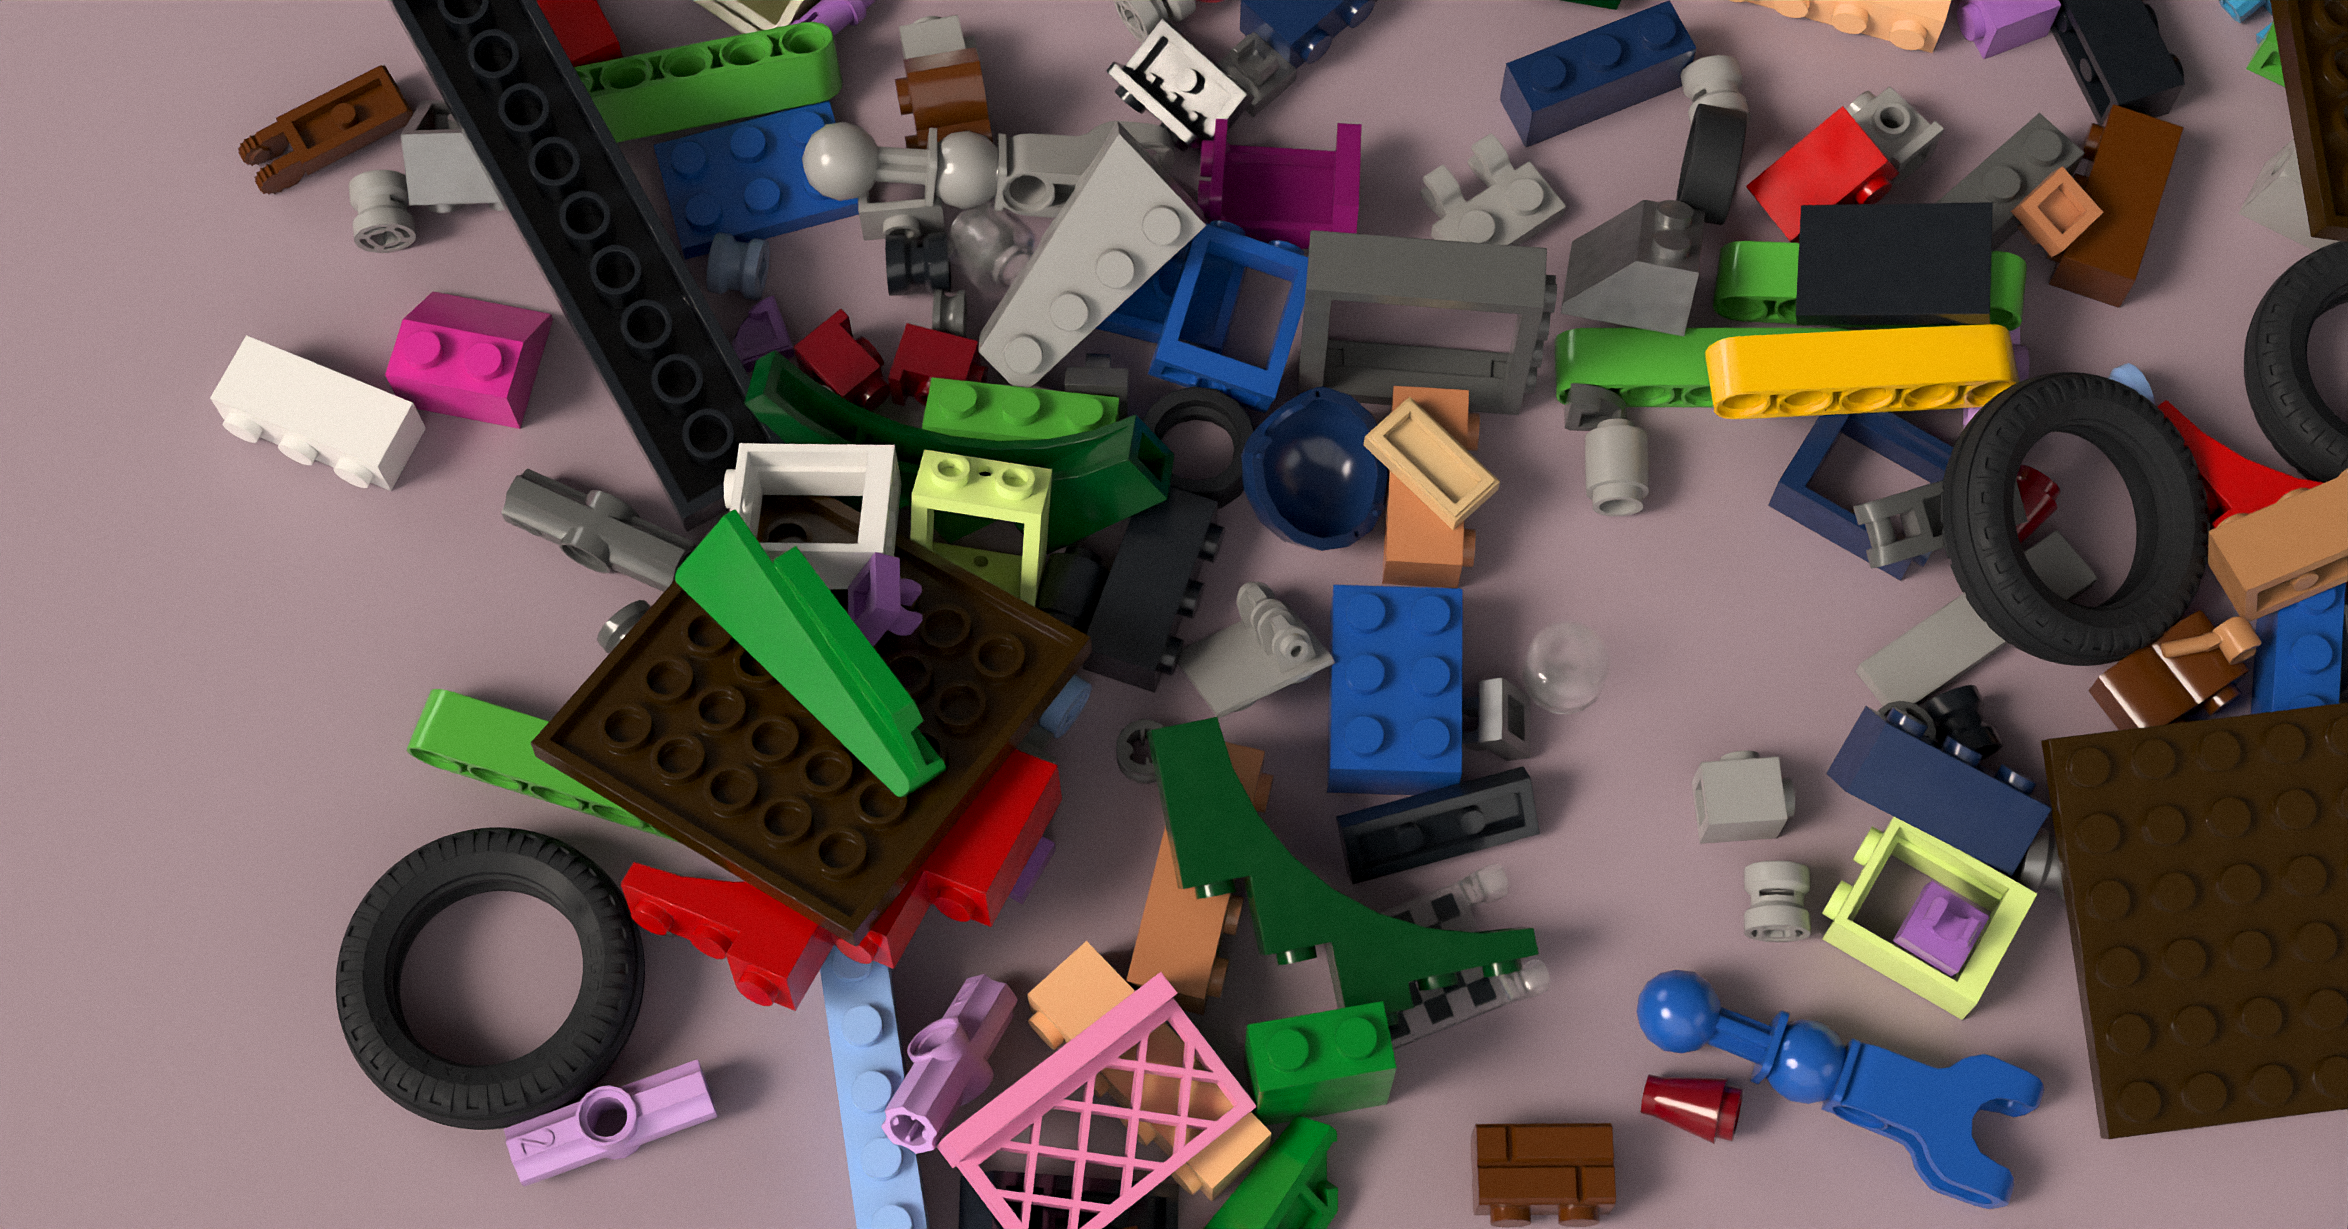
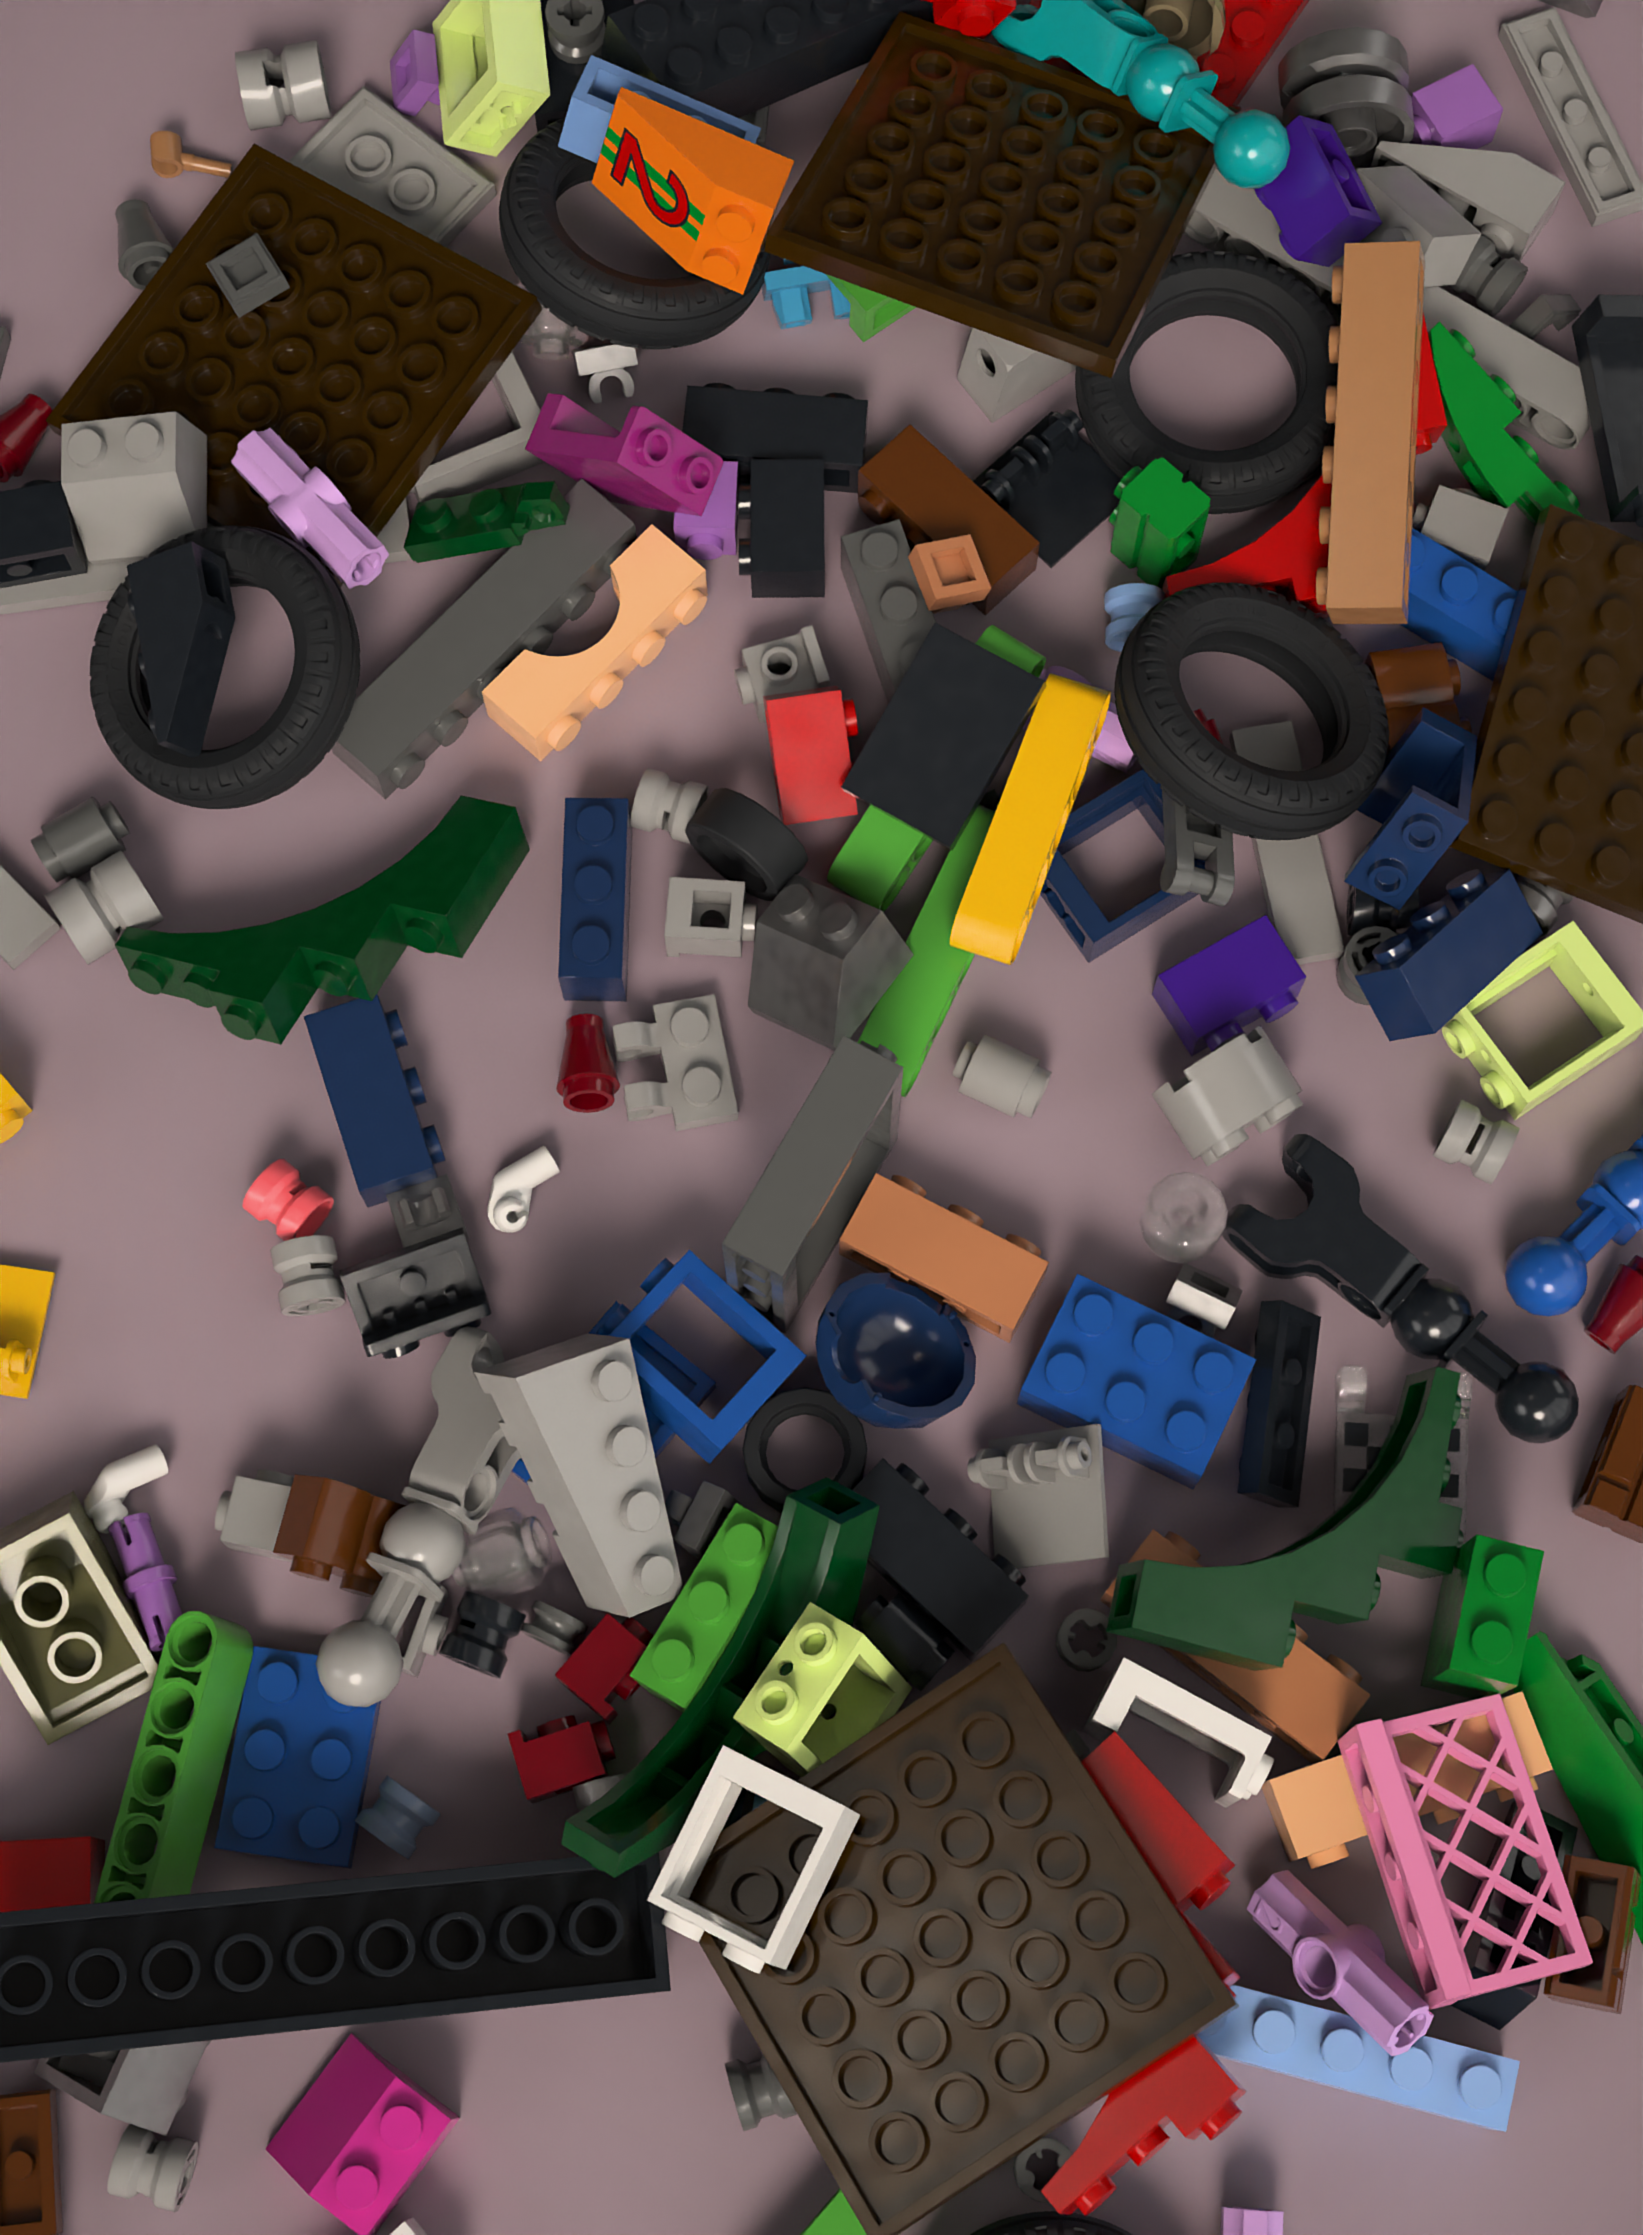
camera: 65 degrees left, 5 degrees up
(595, 529) = (622, 2081): dark grey piece -> none
(761, 334) = (480, 1826): medium lavender tile -> none
(812, 649) = (921, 1921): green wedge -> none
(877, 599) = (881, 1833): medium lavender tile -> none
(1099, 784) = (1189, 1719): none -> white panel
(1282, 189) = (579, 1245): magenta panel -> none
(1304, 128) = (513, 1187): none -> white arm
(1431, 463) = (938, 1242): tan tile -> none
(1446, 133) = (586, 1069): none -> dark red cone
(1587, 917) = (1389, 1285): none -> black piece
(1590, 405) = (933, 1071): dark grey tile -> none
(1632, 152) = (696, 900): none -> light grey brick
(1699, 656) = (1227, 1093): none -> light grey brick
(1741, 798) = (1369, 1123): light grey brick -> none
(1806, 624) = (1230, 987): none -> dark purple brick
(1941, 928) = (1576, 1015): medium lavender tile -> none
(2025, 73) = (786, 528): none -> black brick
(2047, 695) = (1422, 807): none -> dark blue panel
(2202, 283) = (1053, 485): none -> black hinge
(2218, 369) = (1158, 521): none -> green brick
(2233, 637) = (1417, 639): medium nougat hand -> none

